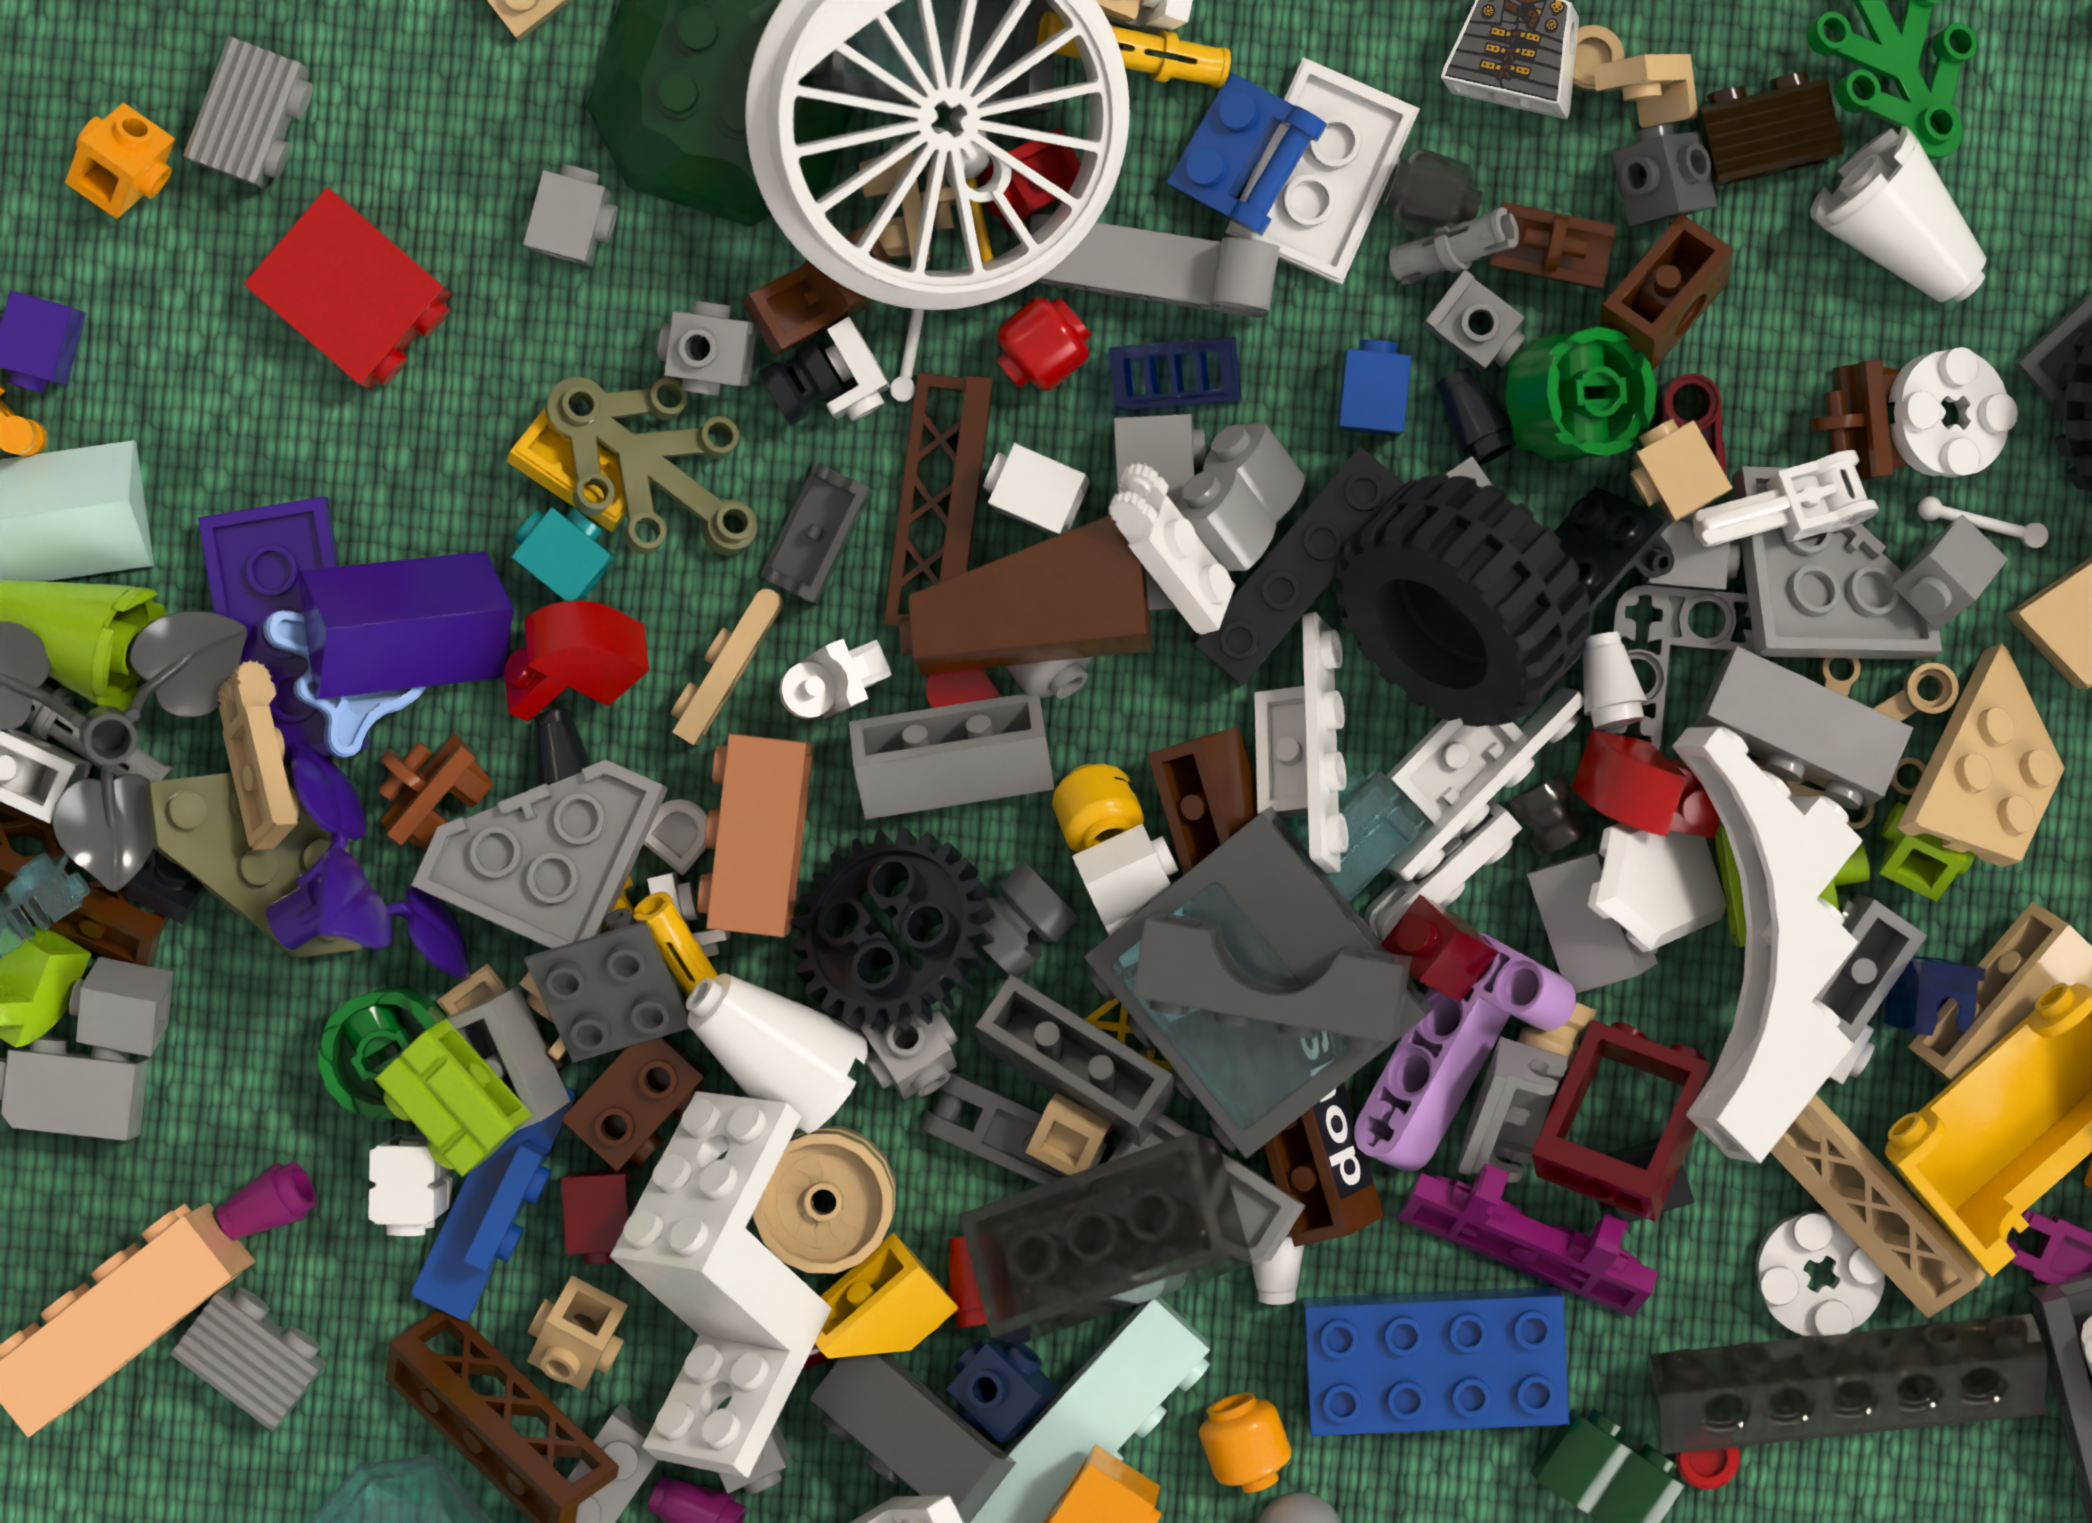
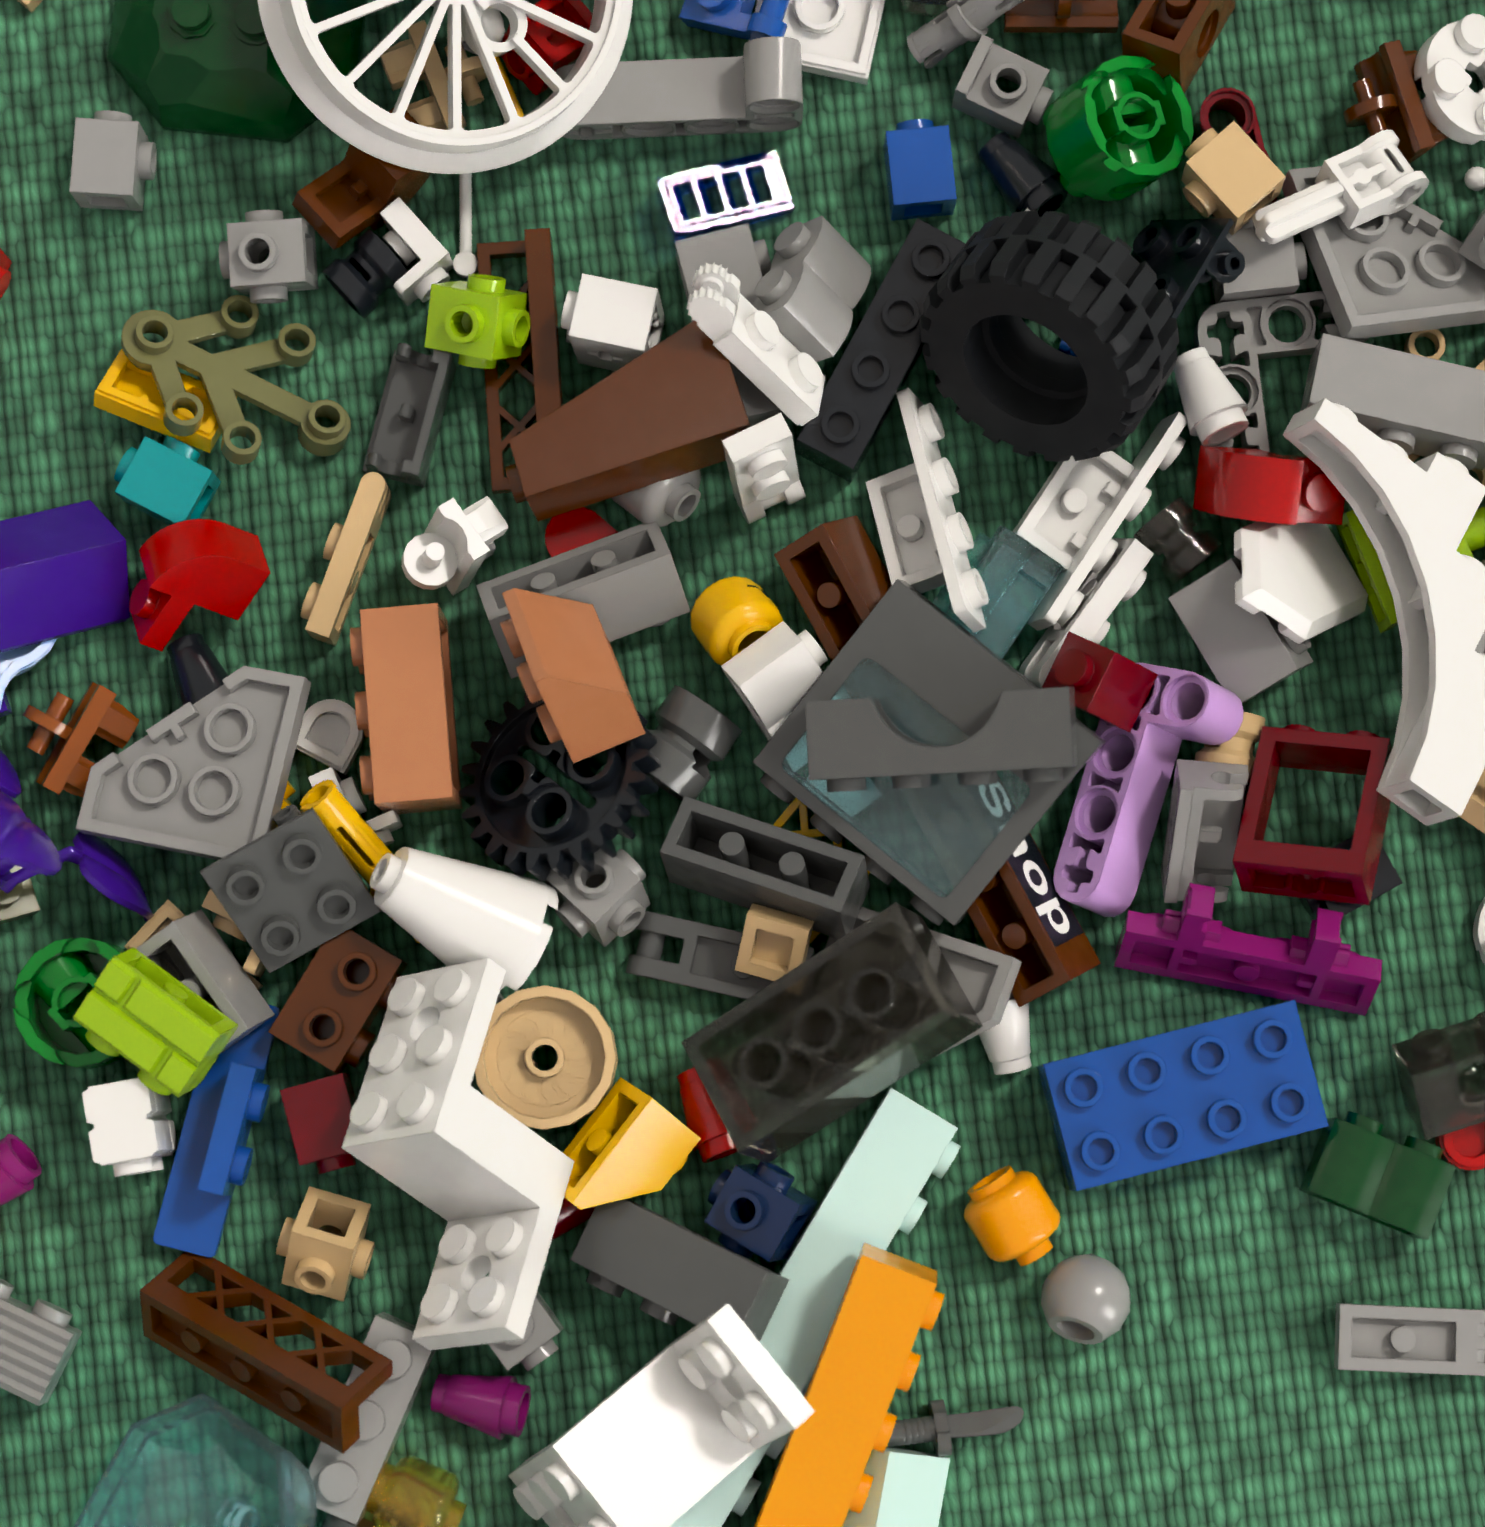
camera: 10 degrees left, 5 degrees down
(902, 457) = (477, 320): none -> lime brick
(923, 837) = (572, 672): none -> nougat slope
(1042, 344) = (591, 189): red head -> none
(1154, 669) = (763, 467): none -> white plate

